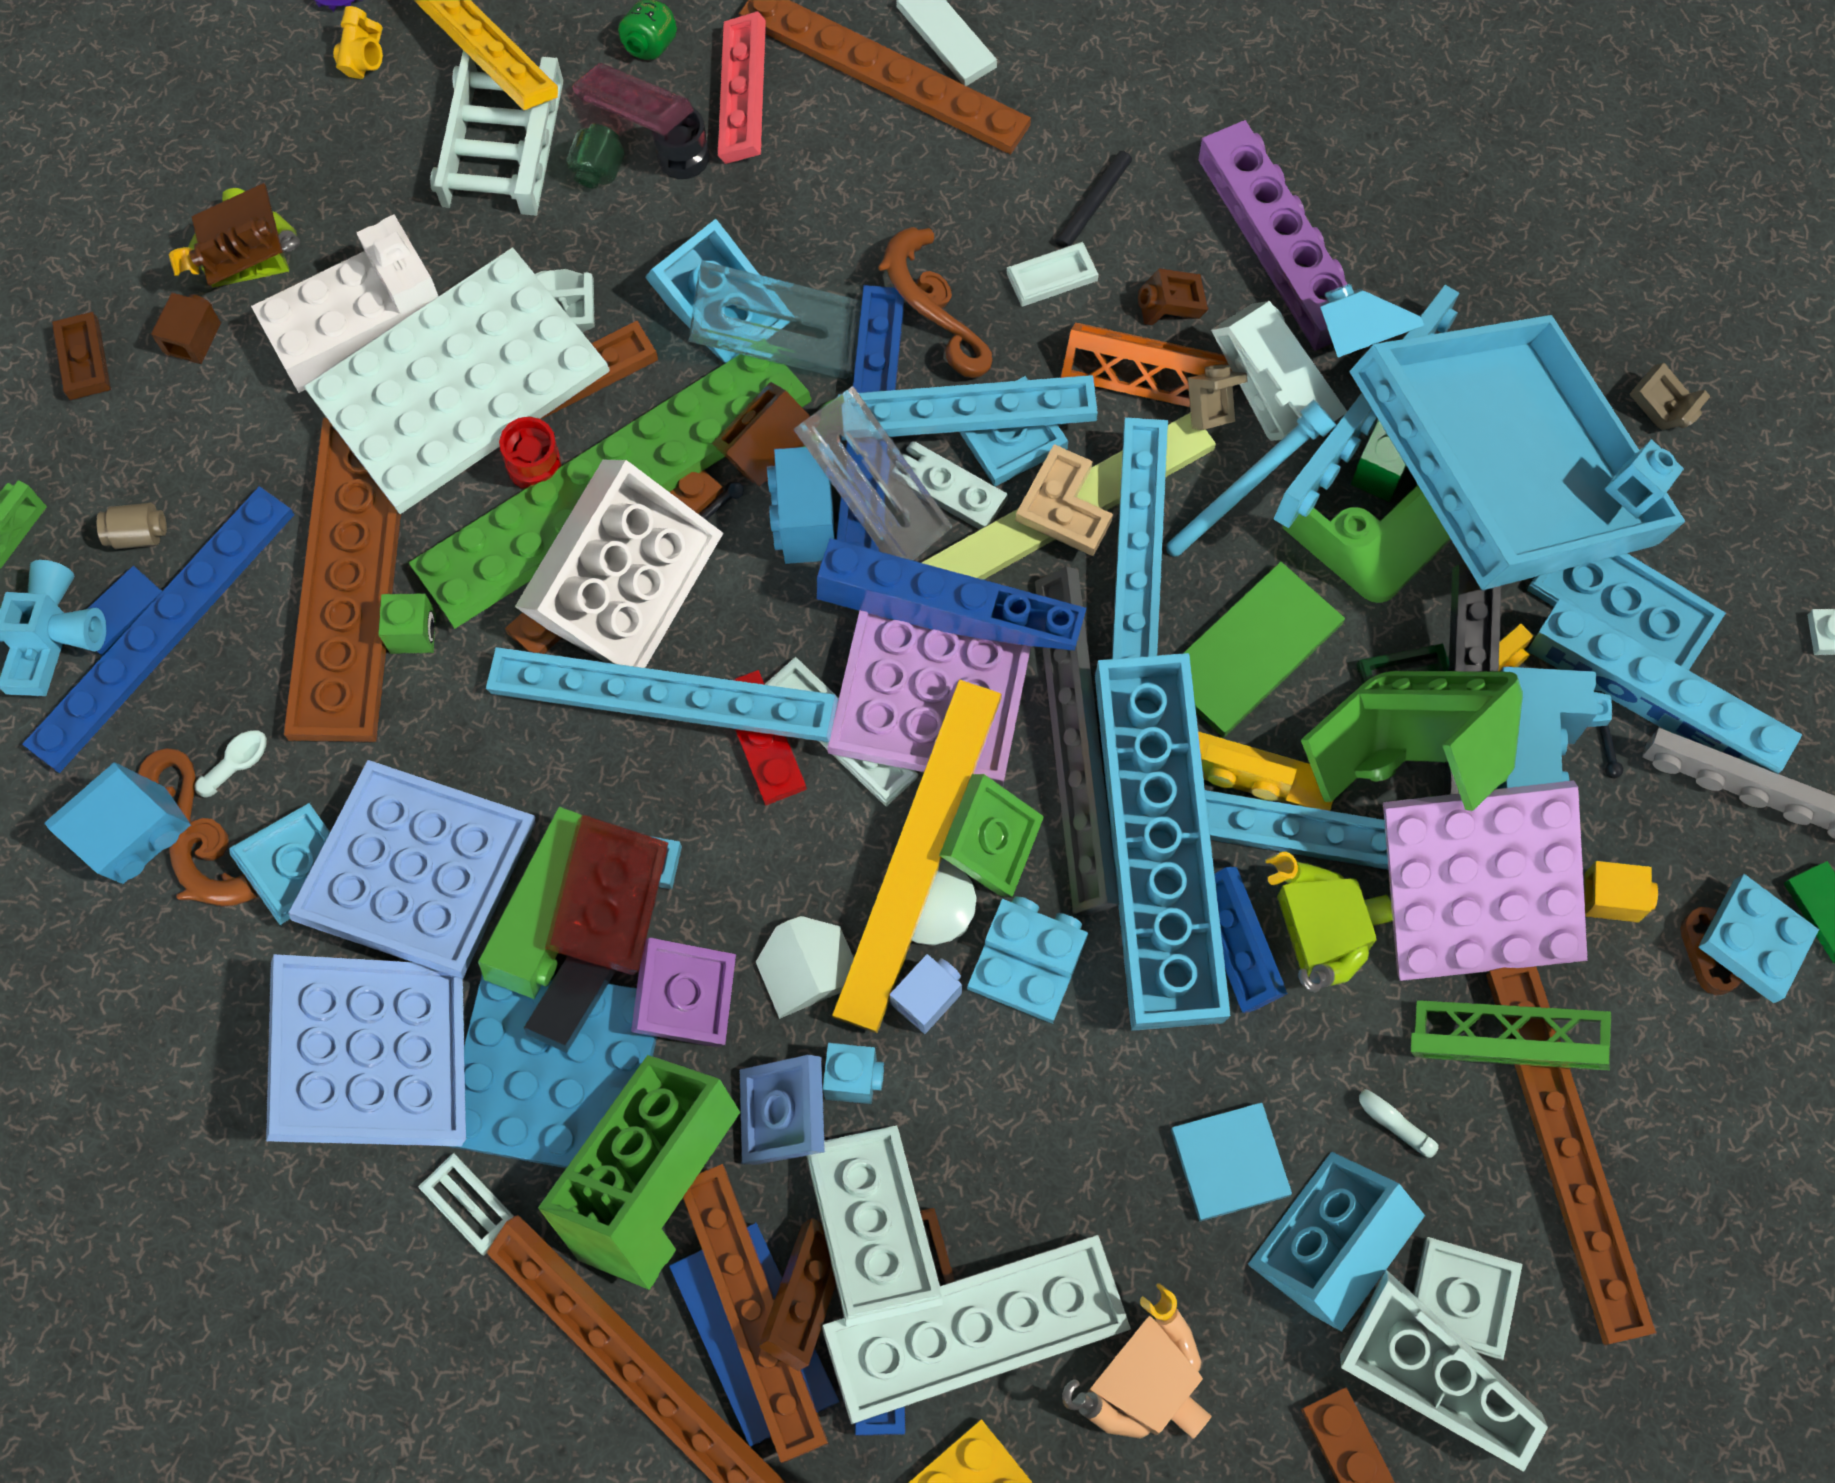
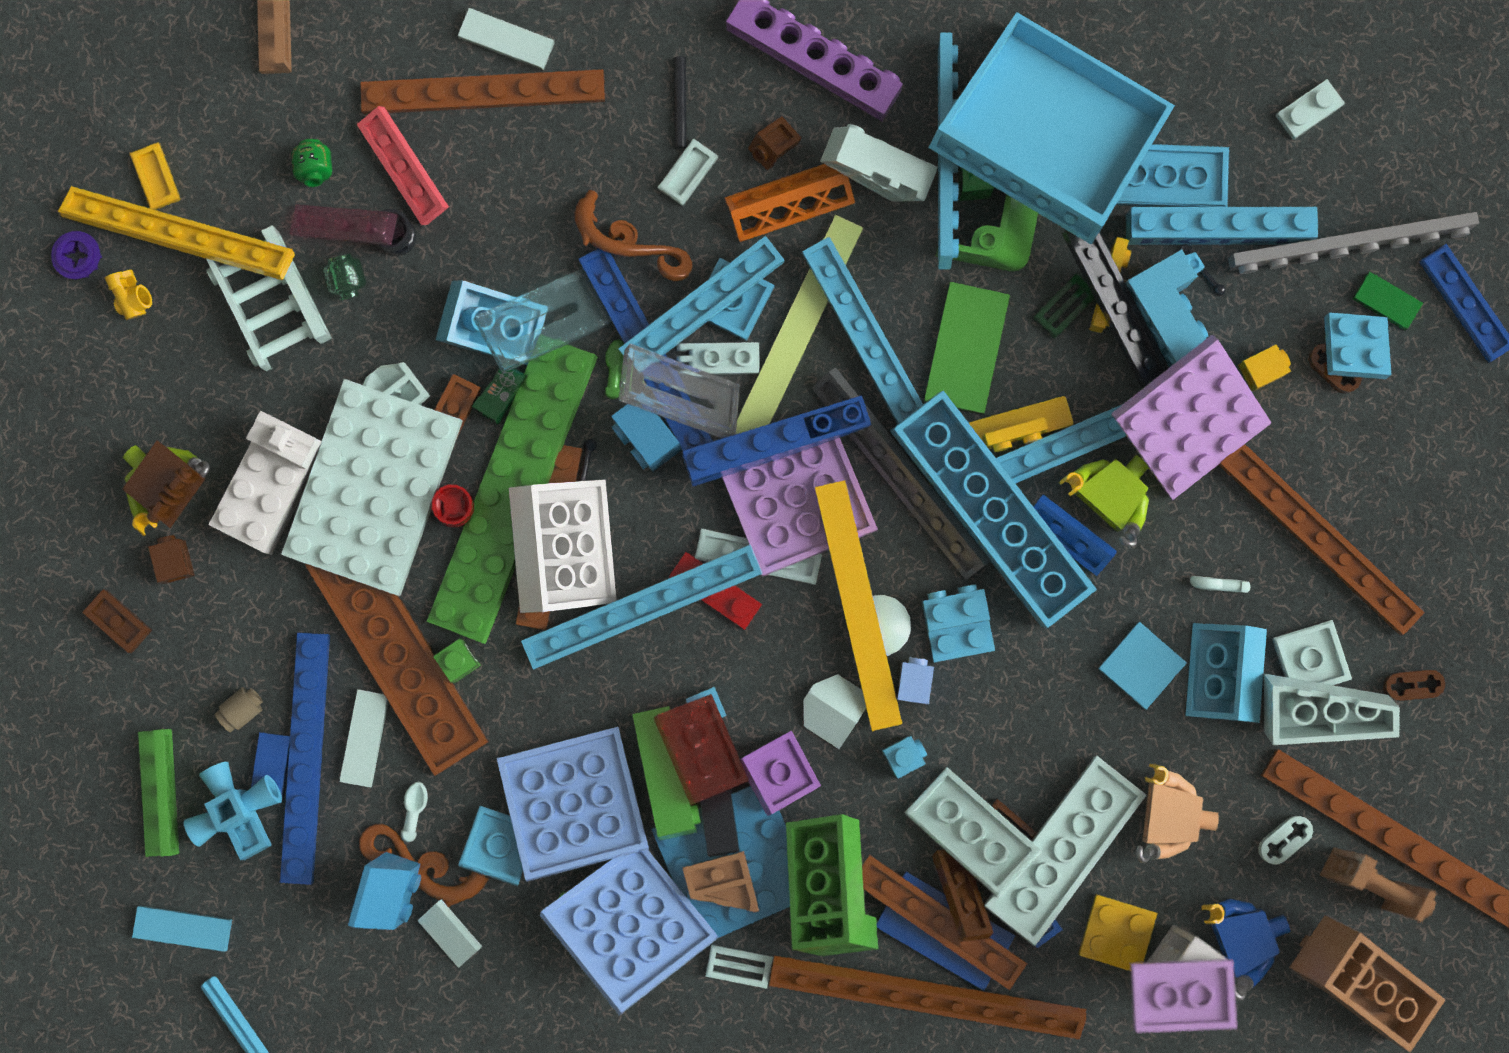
camera: 30 degrees left, 15 degrees up
(161, 929) = (449, 933): none -> light aqua tile
(241, 648) = (364, 738): none -> light aqua tile
(520, 1076) = (722, 882): none -> medium nougat wing
(671, 372) = (499, 395): none -> dark green leg
(759, 430) = (589, 402): reddish brown brick -> none
(782, 1110) = (880, 803): medium blue plate -> none
(991, 835) = (892, 567): bright green plate -> none
(1053, 503) = (793, 335): tan plate -> none
(1213, 396) = (845, 201): dark tan bracket -> none
(1311, 424) = (924, 191): medium azure piece -> none
(1363, 319) = (917, 103): medium azure slope -> none
(1421, 717) = (1100, 335): bright green windscreen -> none
(1517, 1050) = (1261, 506): bright green fence -> none
(1590, 1414) = (1413, 677): none -> reddish brown beam
(1644, 478) = (1138, 99): medium azure brick -> none
(1667, 400) = (1117, 23): dark tan bracket -> none

